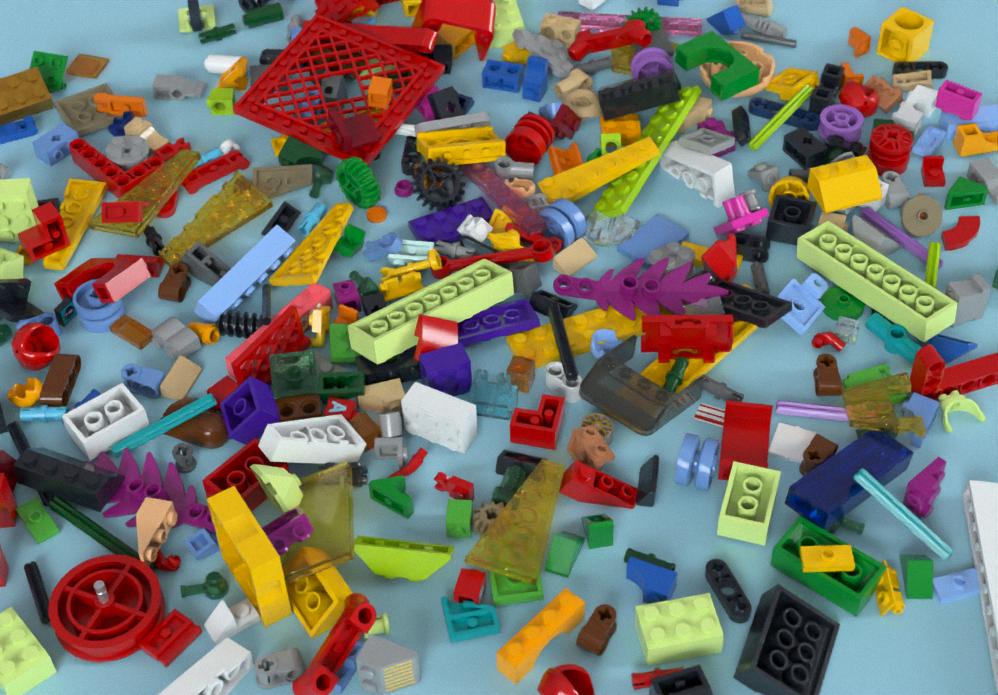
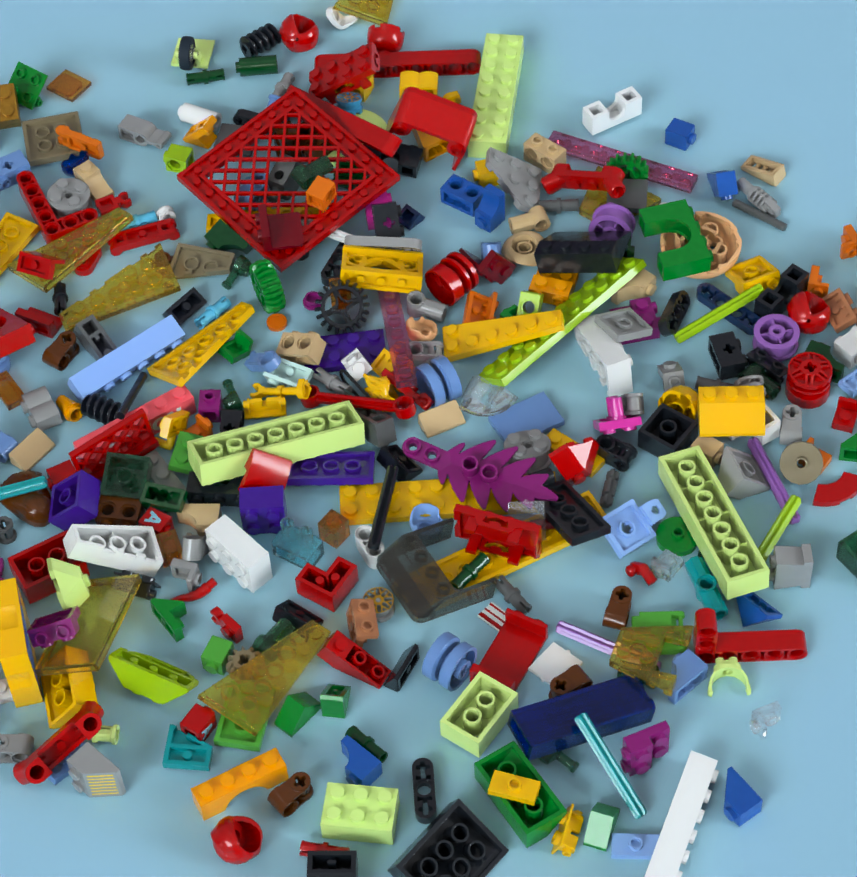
camera: 20 degrees right, 5 degrees up
(361, 80) = (306, 174): none -> clear green piece
(416, 225) = (301, 347): none -> tan brick

